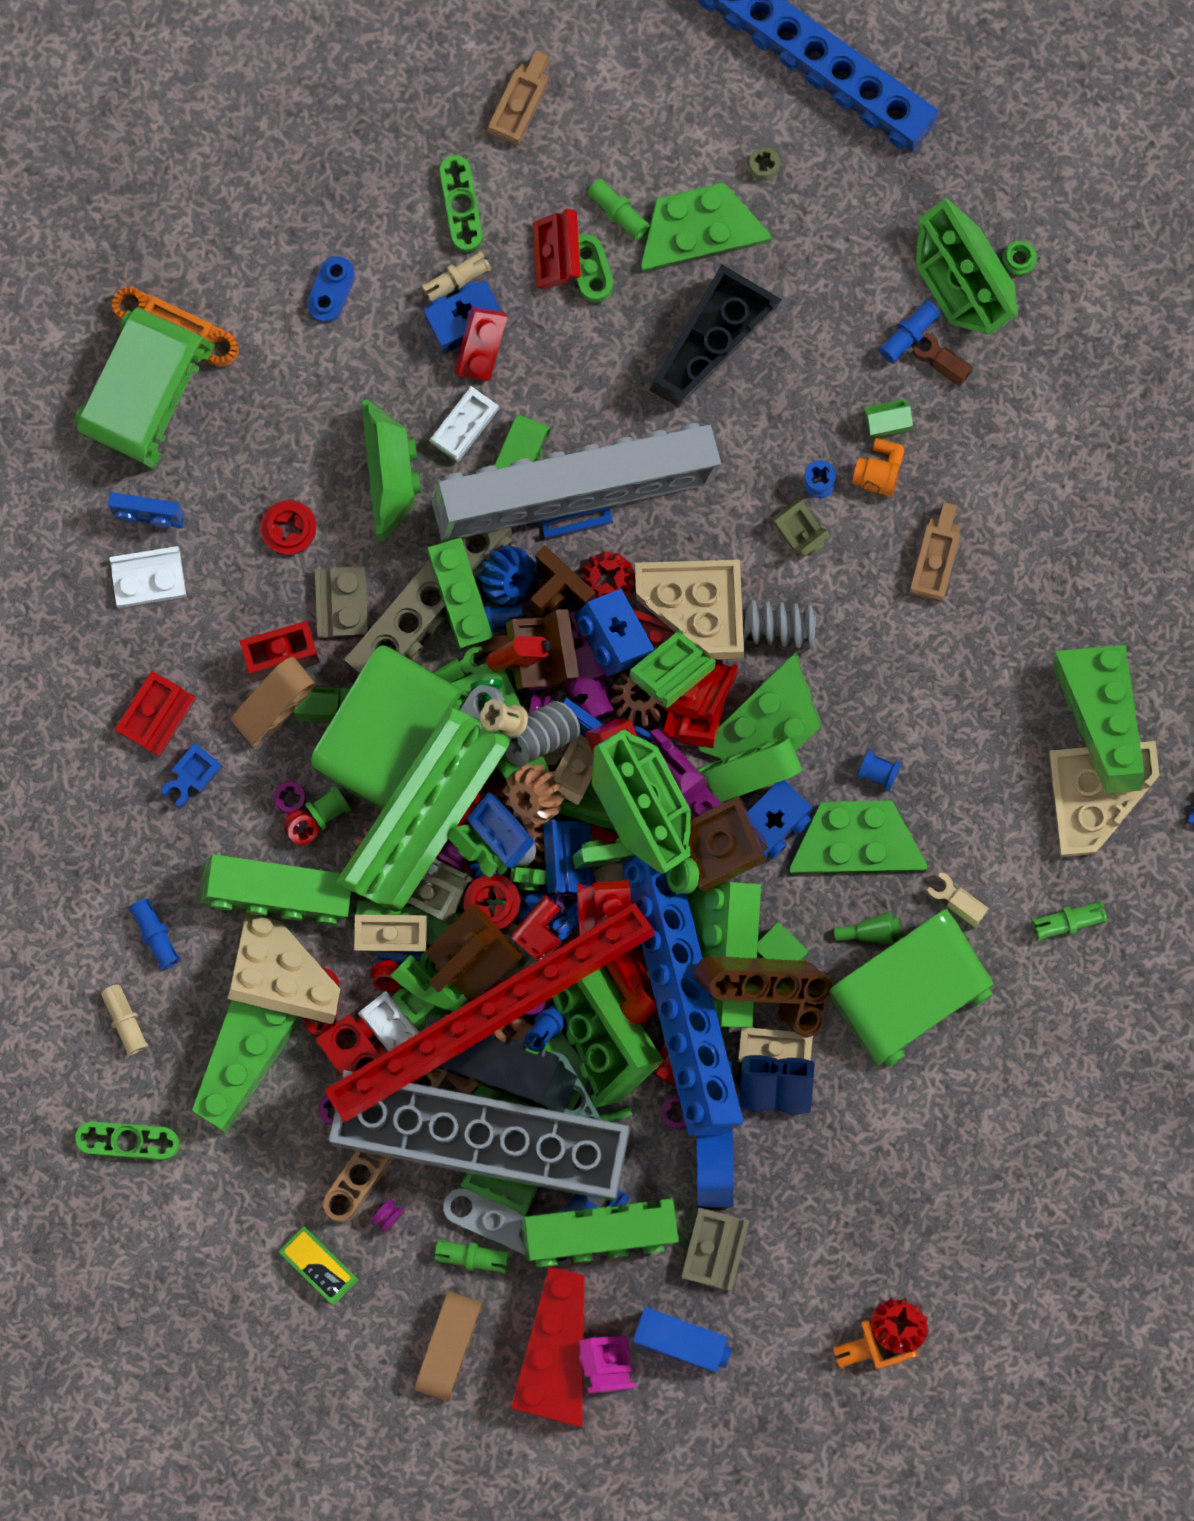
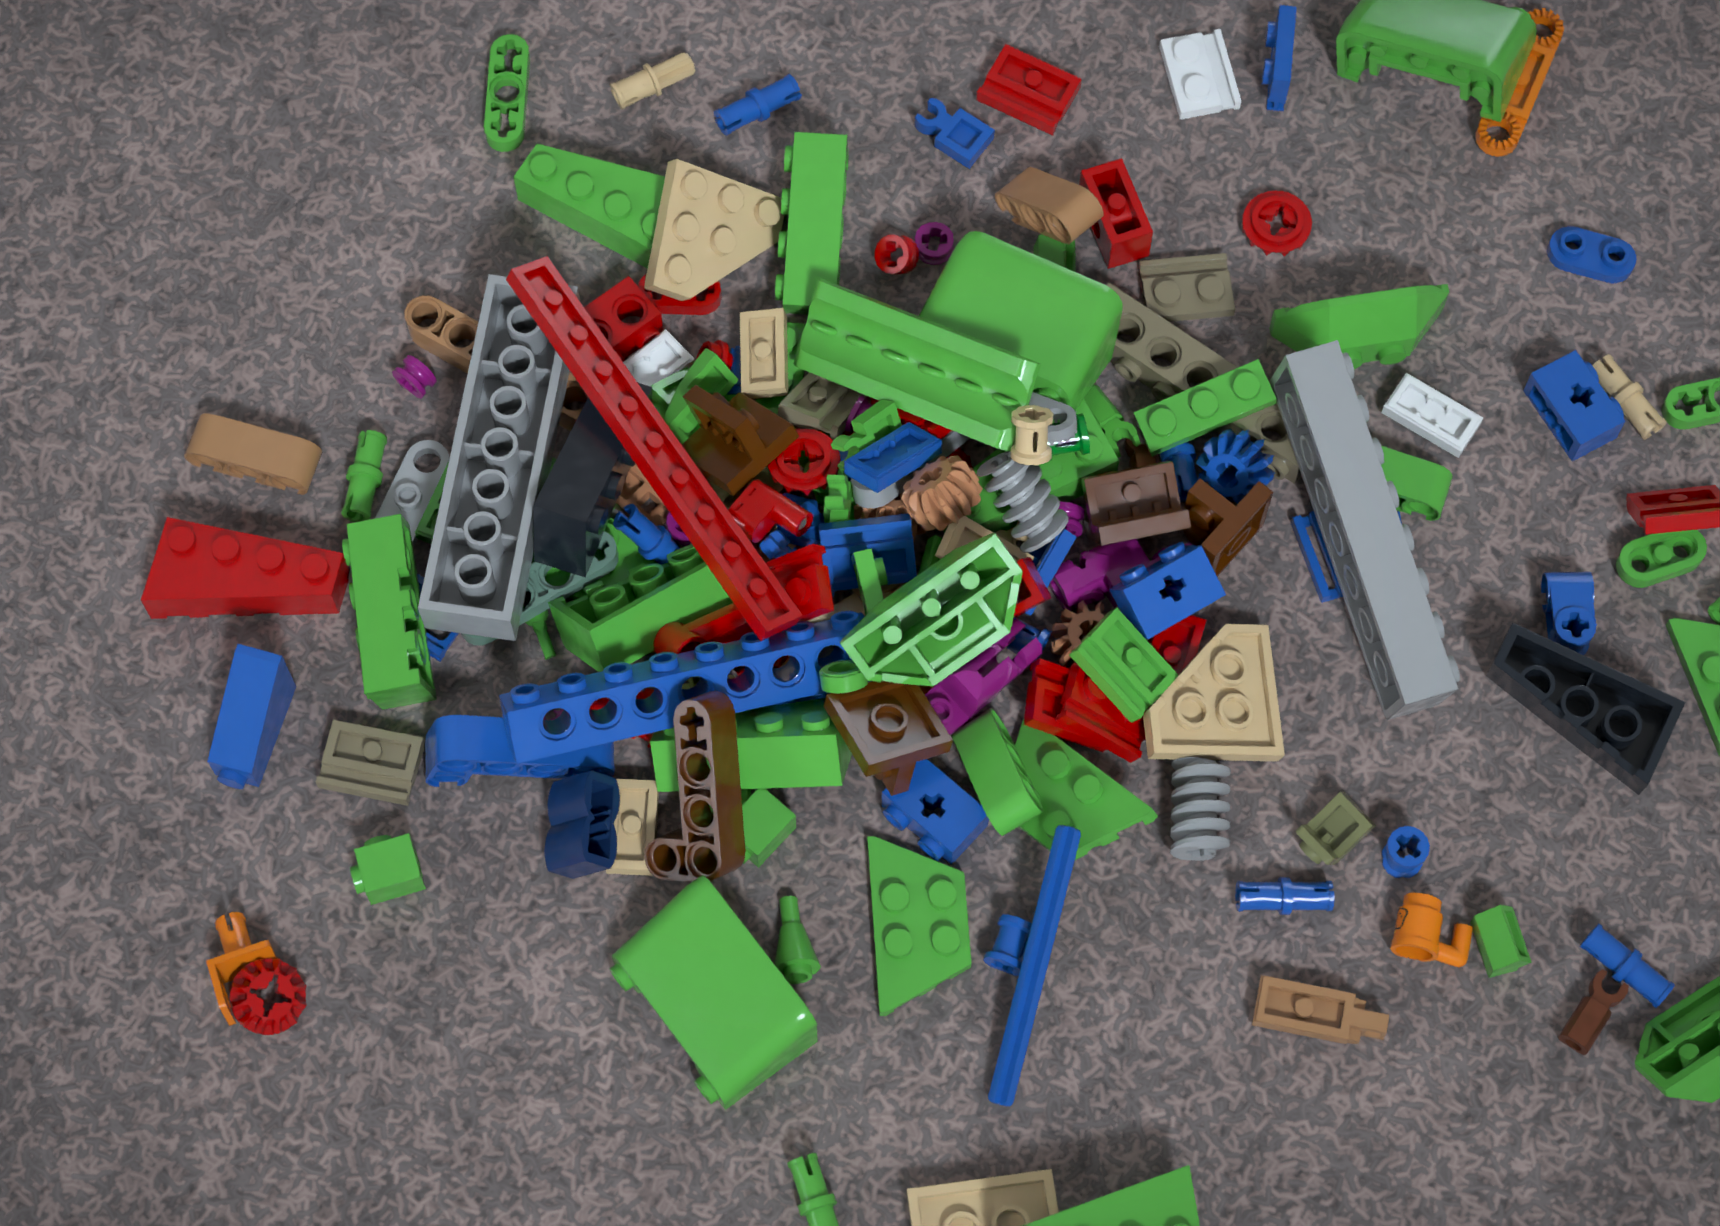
camera: 80 degrees right, 10 degrees down
(318, 1265) = (353, 303): slope -> none
(328, 807) = (917, 278): bright green bush -> none
(480, 343) = (1540, 421): red plate -> none
(519, 651) = (1128, 469): red piece -> none
(607, 1363) = (215, 626): dark pink plate -> none
(609, 562) = (1266, 597): red gear -> none
(630, 340) = (1569, 607): none -> blue piece
(802, 1235) = (387, 868): none -> bright green brick
(848, 569) = (1284, 895): none -> blue pin
(899, 751) = (1034, 965): none -> blue axle
(959, 901) = (838, 1058): tan bar -> none

